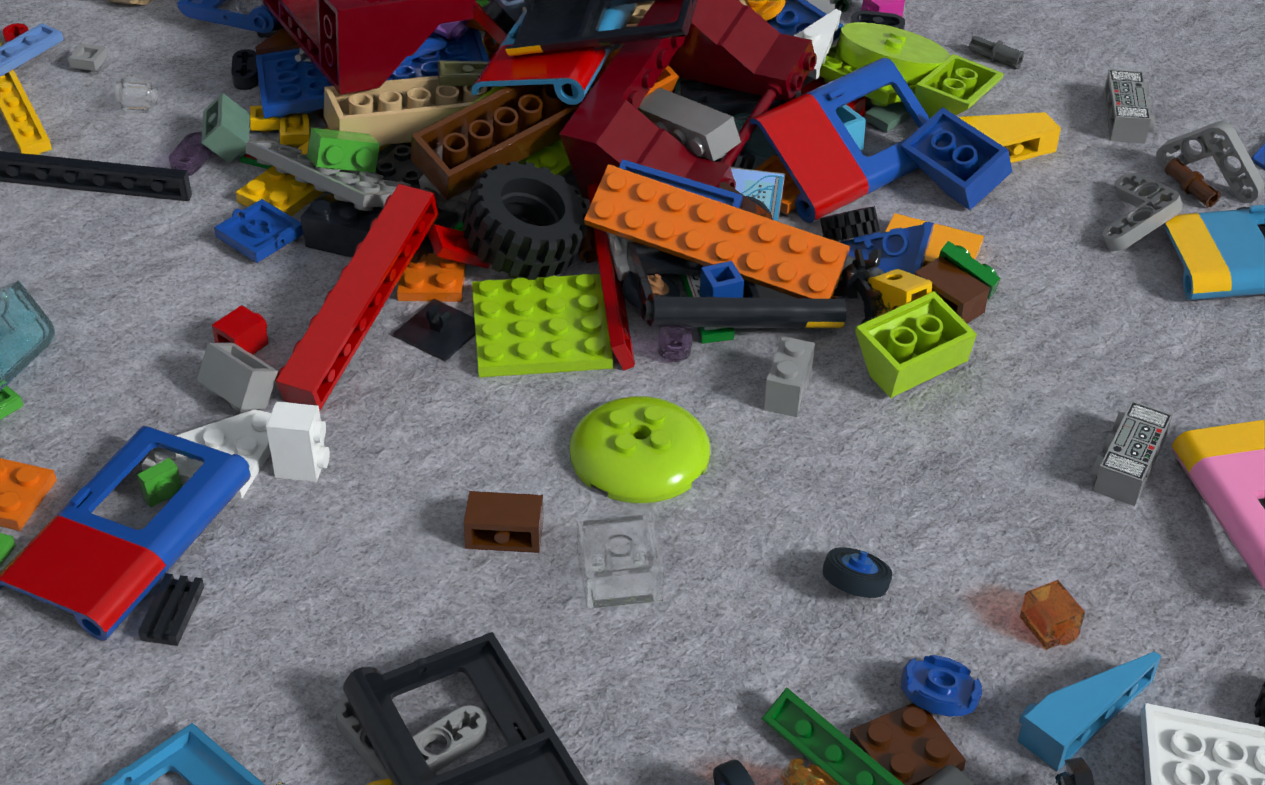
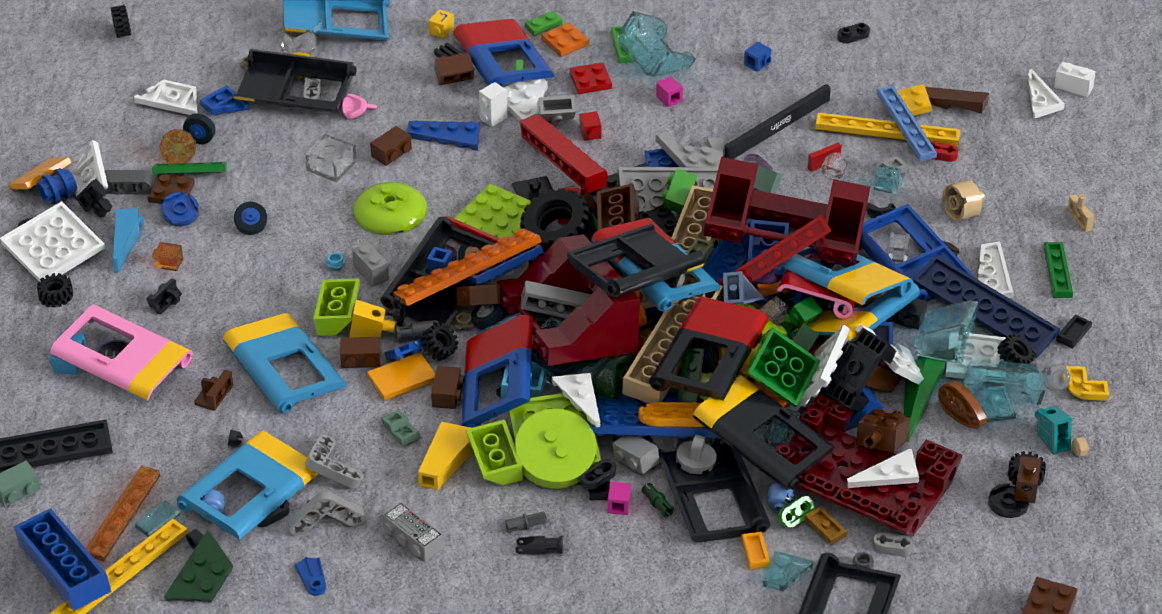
camera: 130 degrees right, 0 degrees up
(78, 299) = (669, 91): none -> dark pink brick
(88, 669) = (441, 24): none -> yellow brick
(99, 407) = (590, 78): none -> red plate
(120, 109) = (817, 158): none -> red tile
(124, 49) = (888, 179): none -> clear light blue brick
(193, 35) = (875, 211): none -> black piece
(225, 560) = (454, 68): none -> reddish brown brick
(232, 193) = (692, 156): none -> light grey wing
(397, 490) = (452, 132): none -> blue wing
(439, 634) = (355, 106): none -> bright pink piece
(820, 426) = (335, 261): none -> medium azure plate
(904, 192) = (447, 387): none -> reddish brown brick
(958, 157) = (435, 407): blue slope -> none
(962, 259) = (362, 362): green plate -> none
(1007, 200) = (400, 428): none -> sand green slope
(1009, 26) = (539, 545): none -> black piece
(1055, 379) = (273, 339): none -> dark azure piece
(1125, 548) = (164, 297): none -> black hips
(1130, 452) = (205, 338): brick -> none
(1188, 384) = (214, 390): none -> reddish brown panel
(1225, 316) = (233, 438): none -> black hinge

